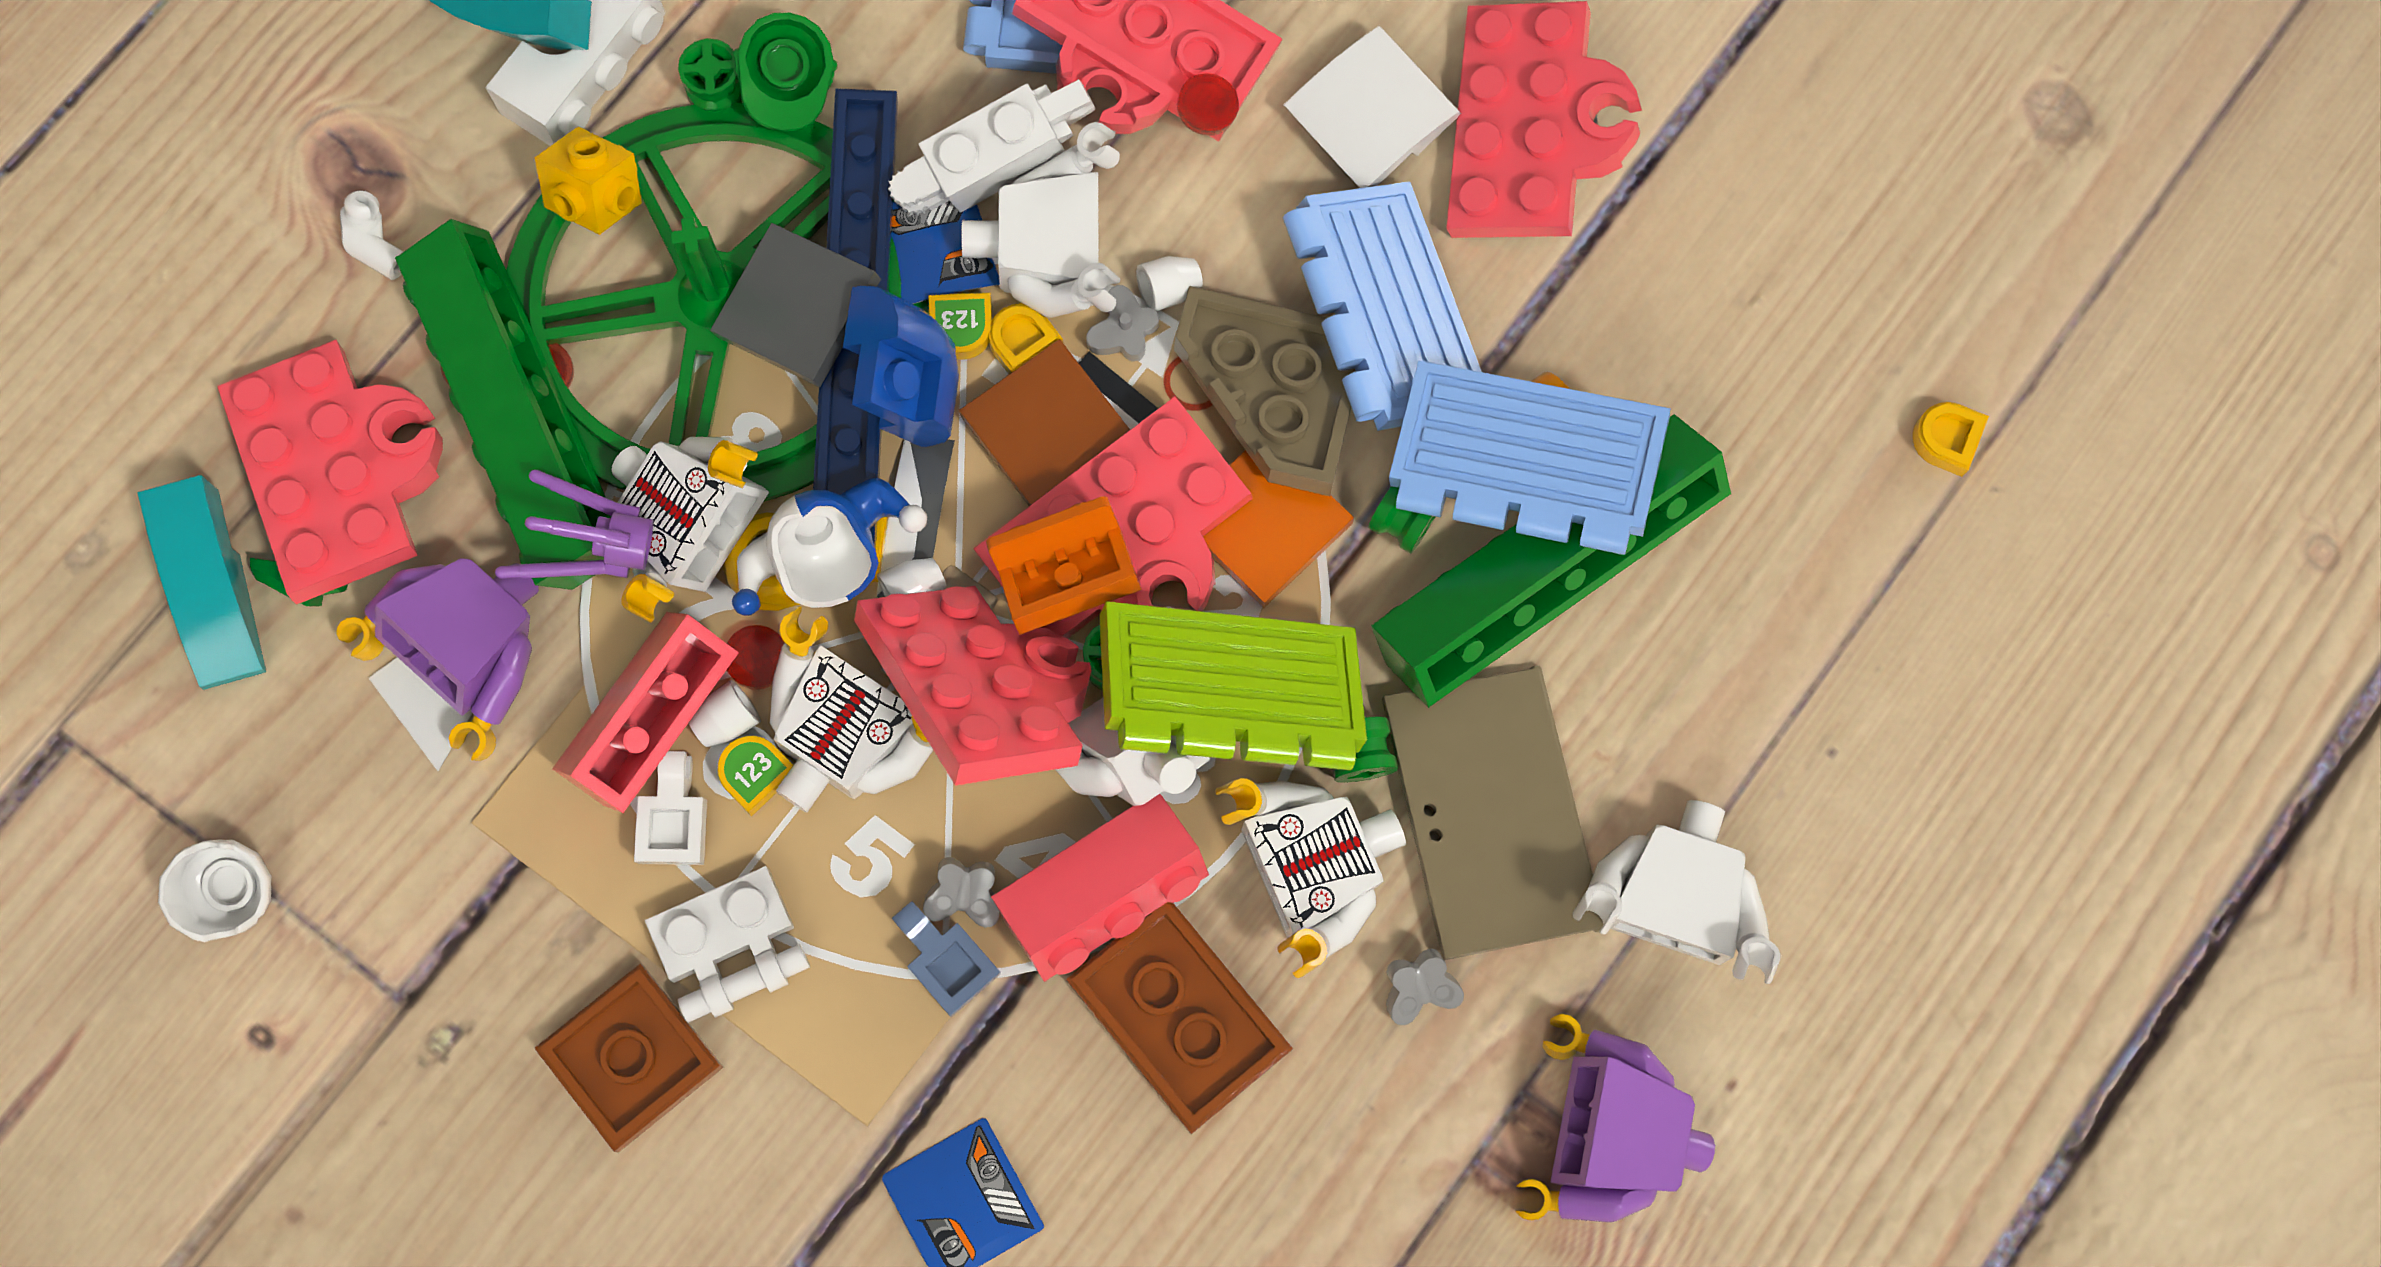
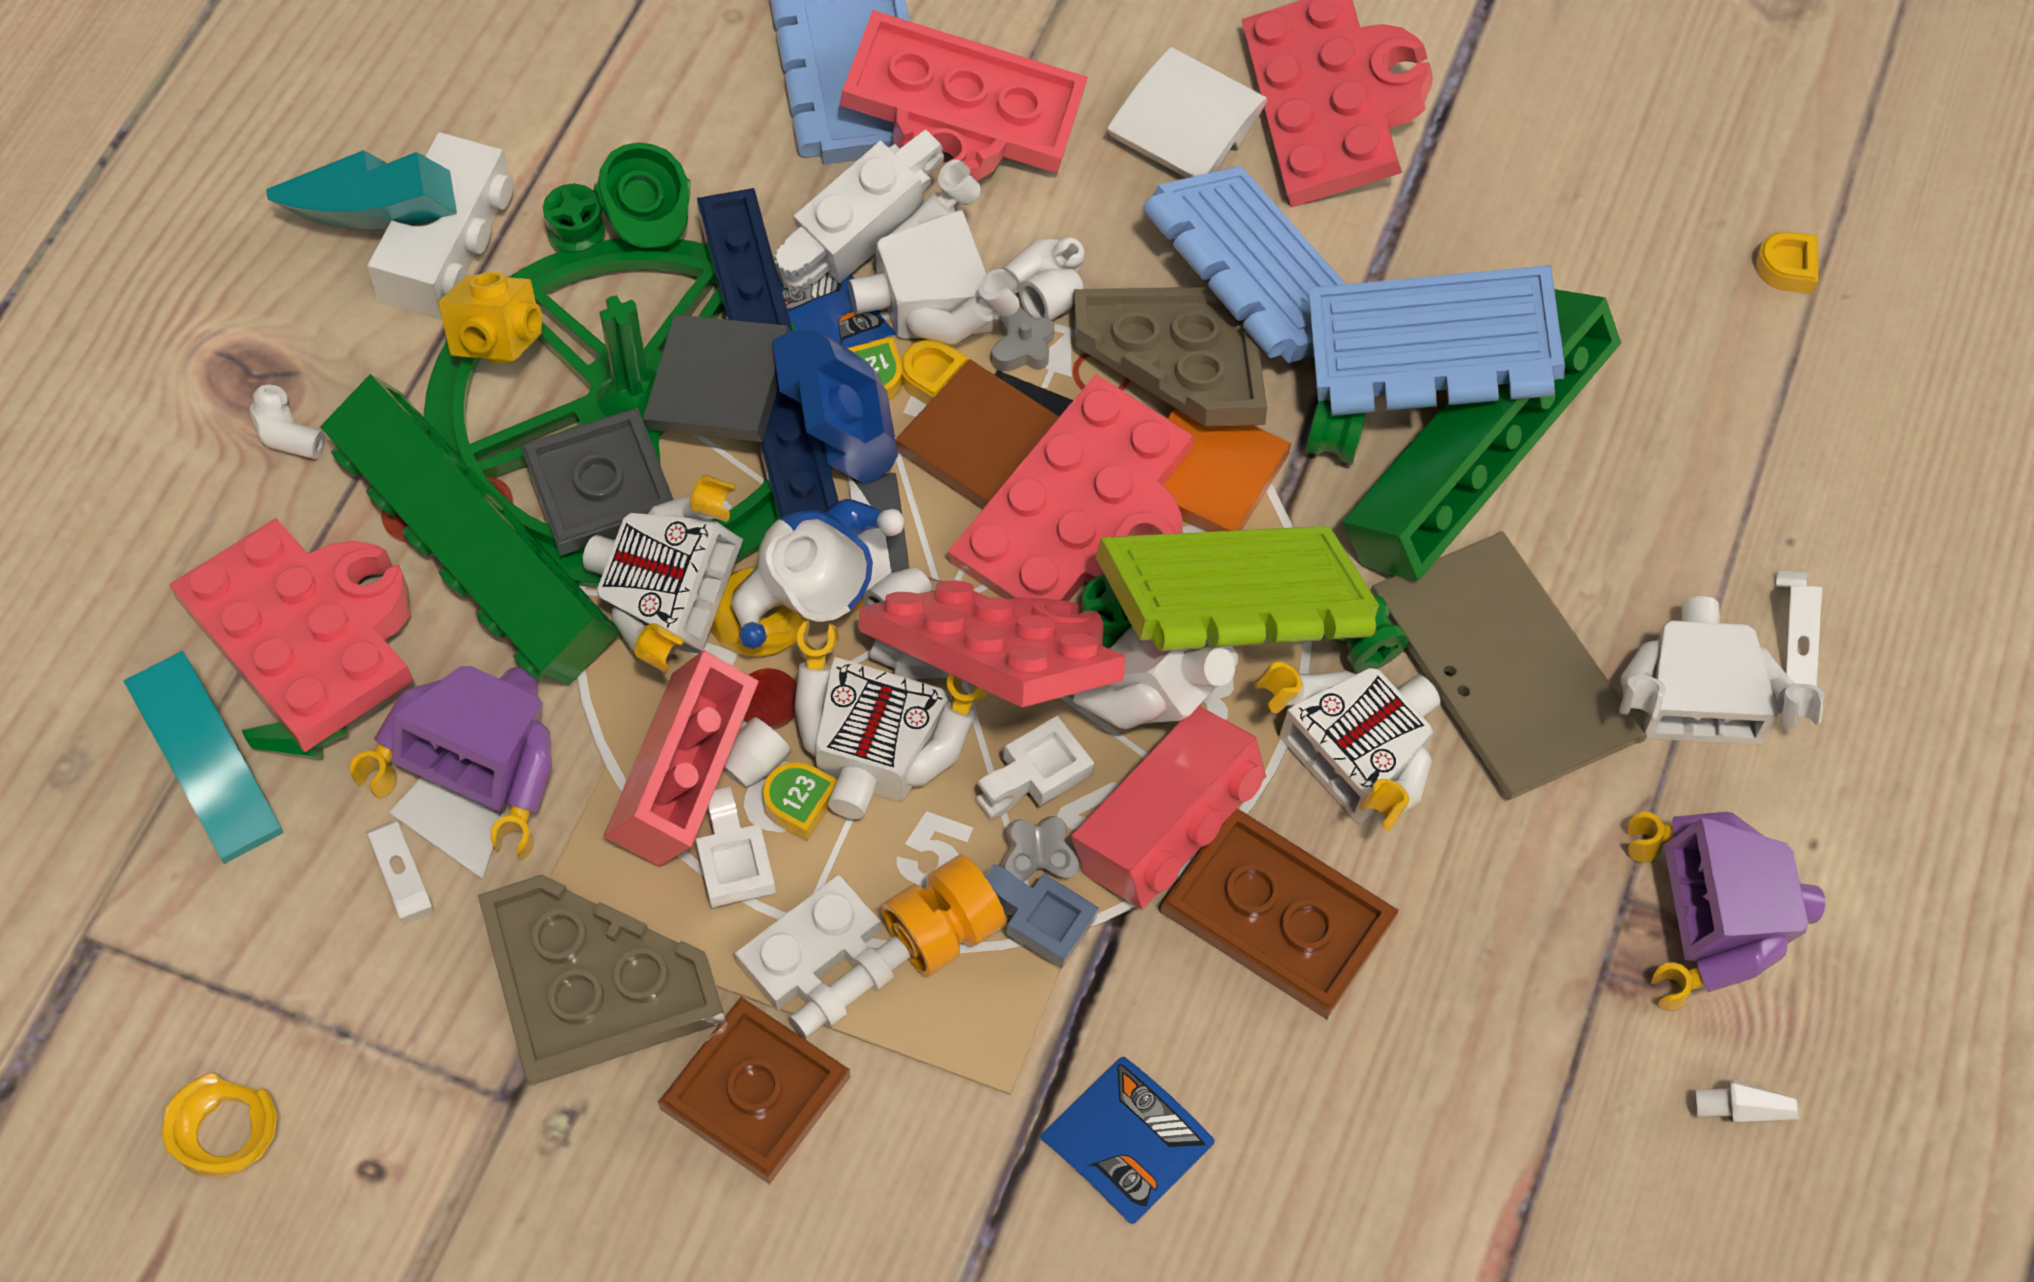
camera: 15 degrees left, 15 degrees down
(97, 958) = (197, 1101): none -> yellow piece
(214, 890) = (294, 1030): white hair -> none
(364, 760) = (405, 888): none -> white piece
(502, 908) = (590, 979): none -> dark tan plate
(621, 539) = (617, 599): medium lavender plant -> none
(651, 383) = (595, 478): none -> dark grey tile
(872, 934) = (949, 911): none -> light orange wheel
(993, 806) = (1038, 763): none -> white plate
(1063, 564) = (1043, 527): orange bracket -> none
(1169, 238) = (1045, 255): none -> white arm
(1207, 104) = (1041, 137): clear red piece -> none
(1419, 984) = (1497, 823): light grey piece -> none
(1805, 852) = (1803, 621): none -> white piece

